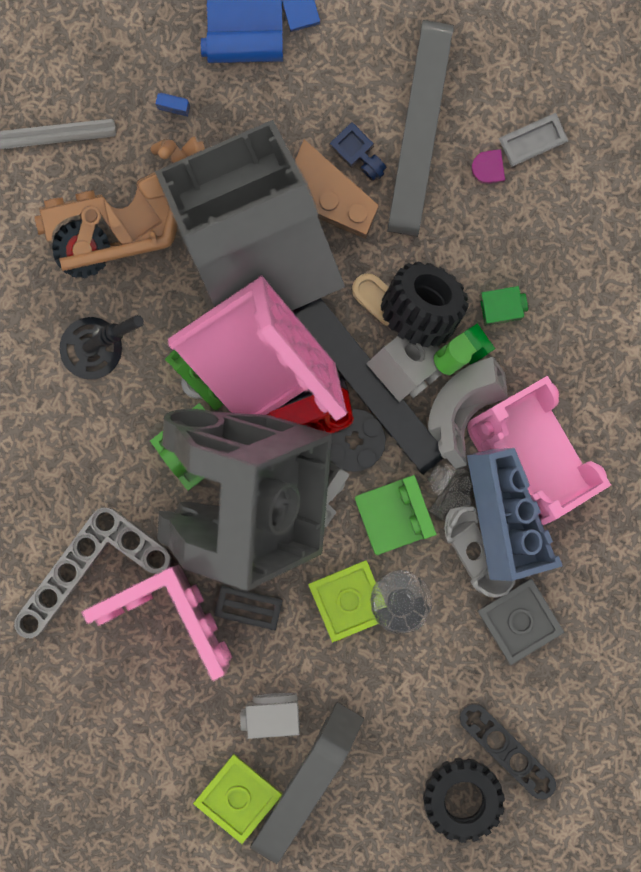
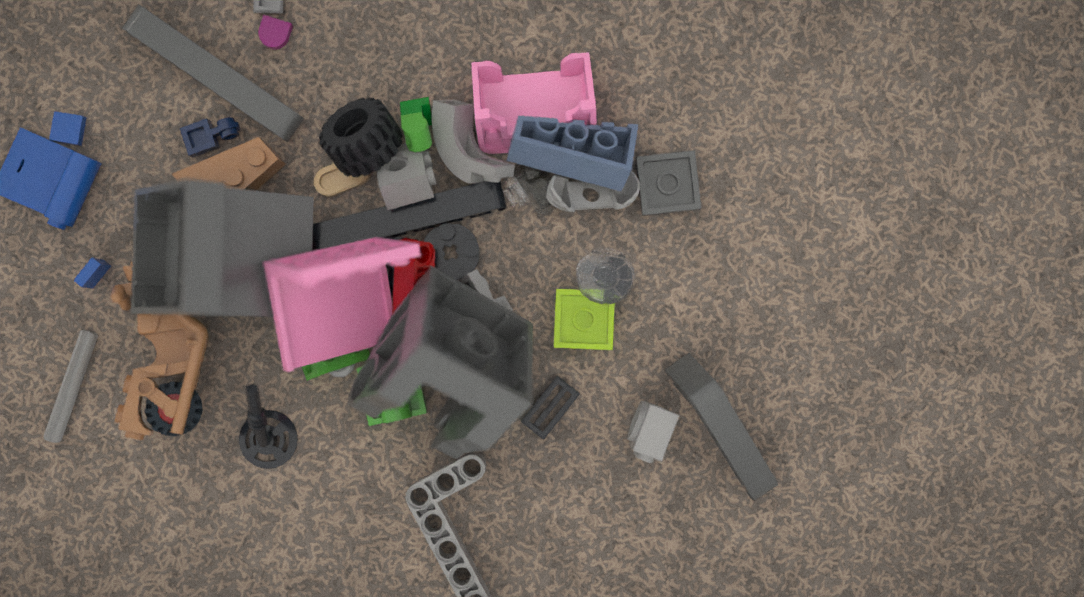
camera: 60 degrees left, 0 degrees up
(187, 601) = (522, 459): bright pink bracket -> none
(237, 798) = (707, 491): lime plate -> none
(395, 515) = (529, 246): bright green bracket -> none
(480, 822) = (821, 297): black tyre -> none
(503, 305) = (395, 73): green brick -> none
(508, 749) = (771, 245): black beam -> none

